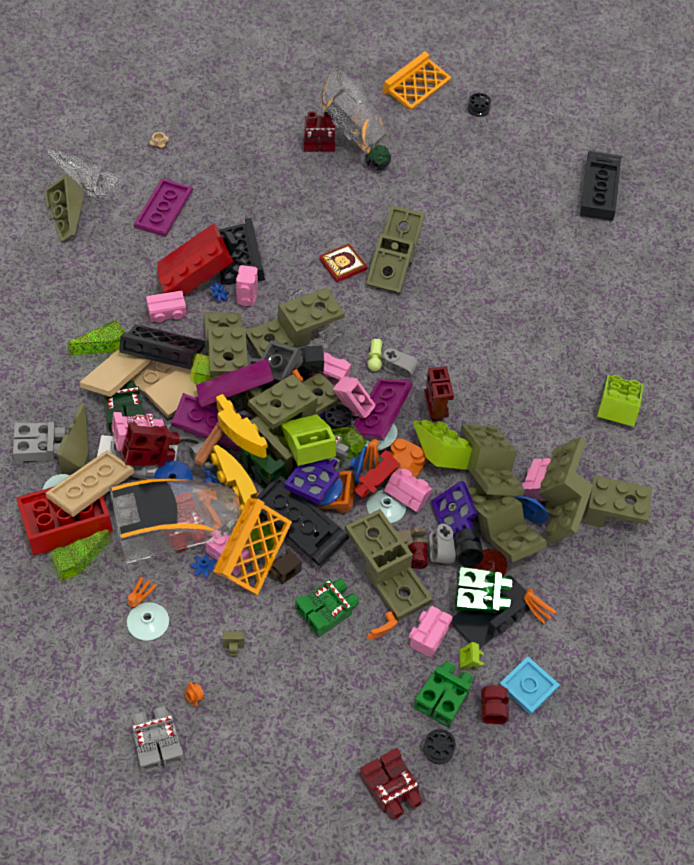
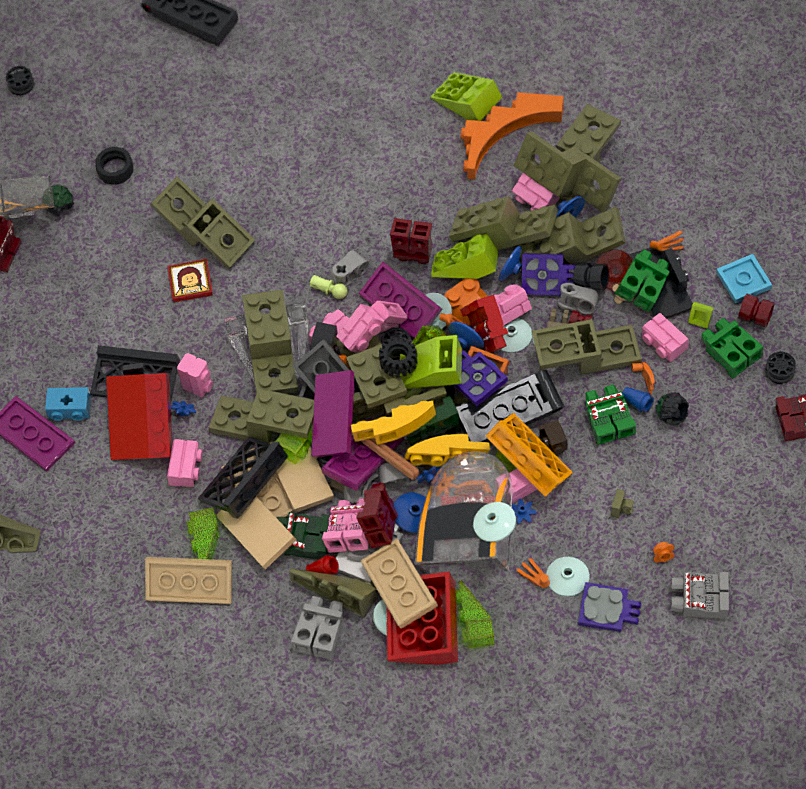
camera: 60 degrees left, 5 degrees up
(56, 339) = (188, 580): none -> tan tile
(96, 428) = (324, 565): none -> red cone
(121, 661) = (607, 607): none -> piece
(156, 527) = (495, 529): none -> light aqua dish
(194, 216) = (68, 403): none -> dark azure brick
(302, 397) = (401, 366): none -> black tyre
(327, 377) = (360, 328): none -> bright pink brick
(352, 657) = (672, 408): none -> black piece
(354, 627) = (639, 399): none -> blue cone
(428, 191) = (114, 177): none -> black tyre
(450, 477) = (512, 265): none -> blue dish
(606, 432) = (525, 111): none -> orange arch

